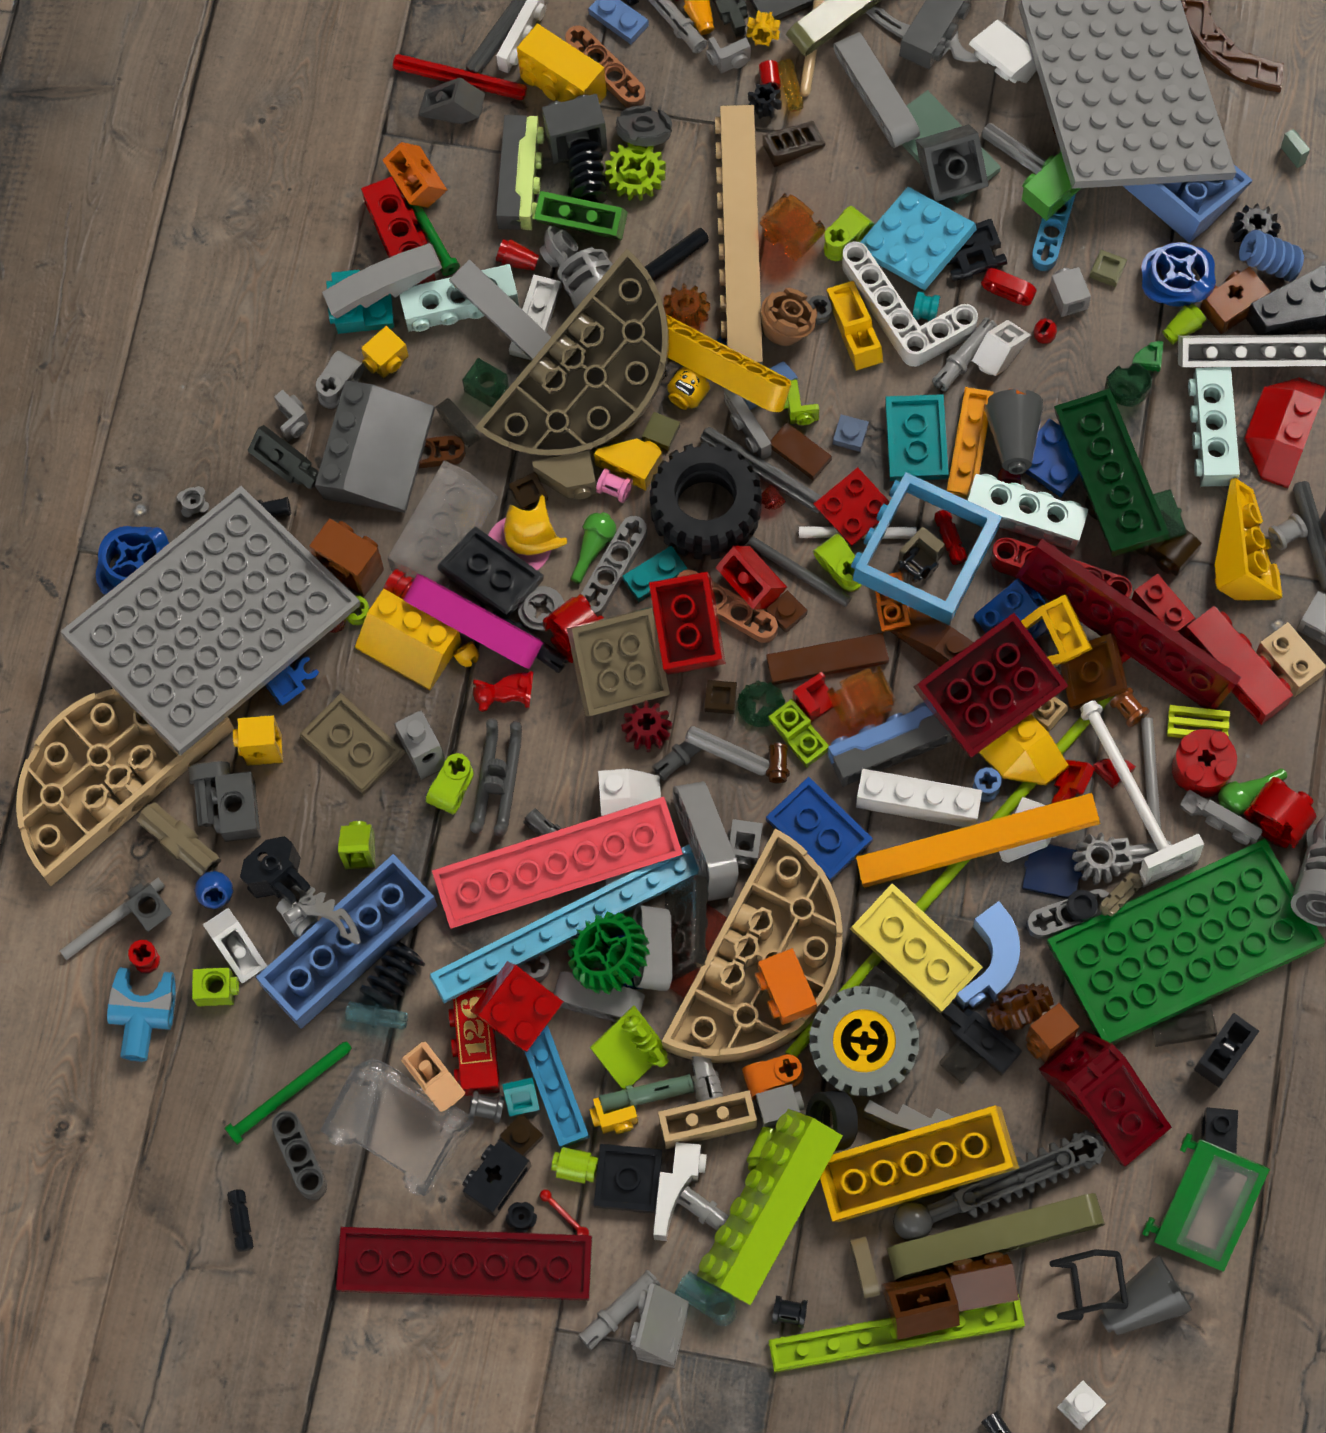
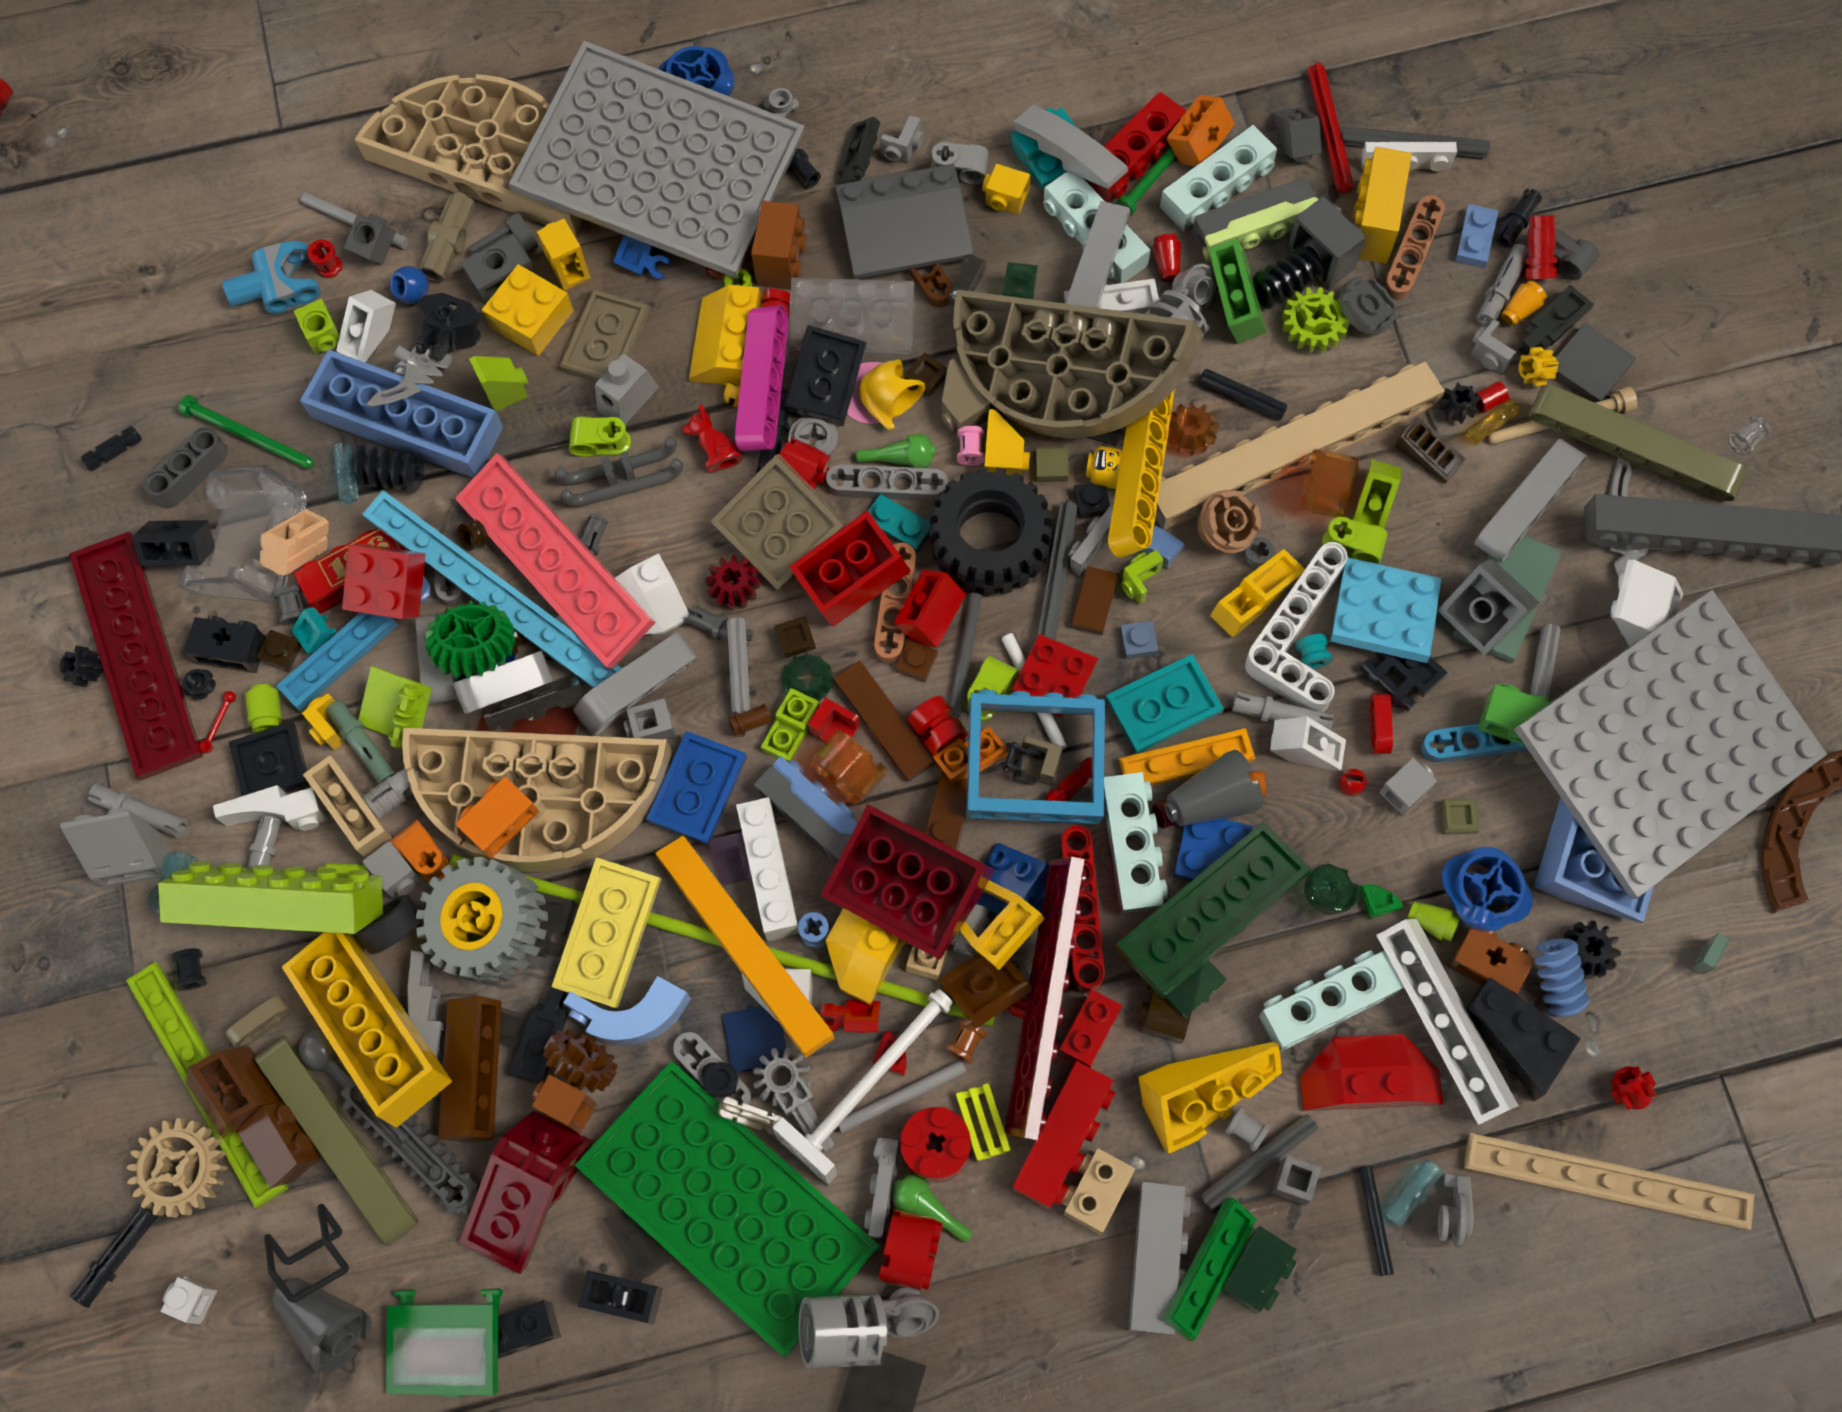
camera: 65 degrees right, 0 degrees up
(295, 795) = (528, 310): none -> yellow brick
(376, 1186) = (174, 543): none -> black brick
(452, 1321) = (80, 666): none -> black gear
(470, 222) = (1248, 148): none -> light aqua brick
(494, 918) = (472, 535): none -> dark brown bush
(709, 414) = (1091, 500): none -> black plate
(771, 498) = (1030, 595): clear red hinge -> none
(817, 194) = (1377, 493): none -> lime slope
(857, 616) = (936, 724): none -> red wheel
(895, 824) = (731, 858): none -> clear purple panel
(966, 1091) = (472, 1065): none -> reddish brown brick
(990, 1372) = (159, 1162): none -> tan gear

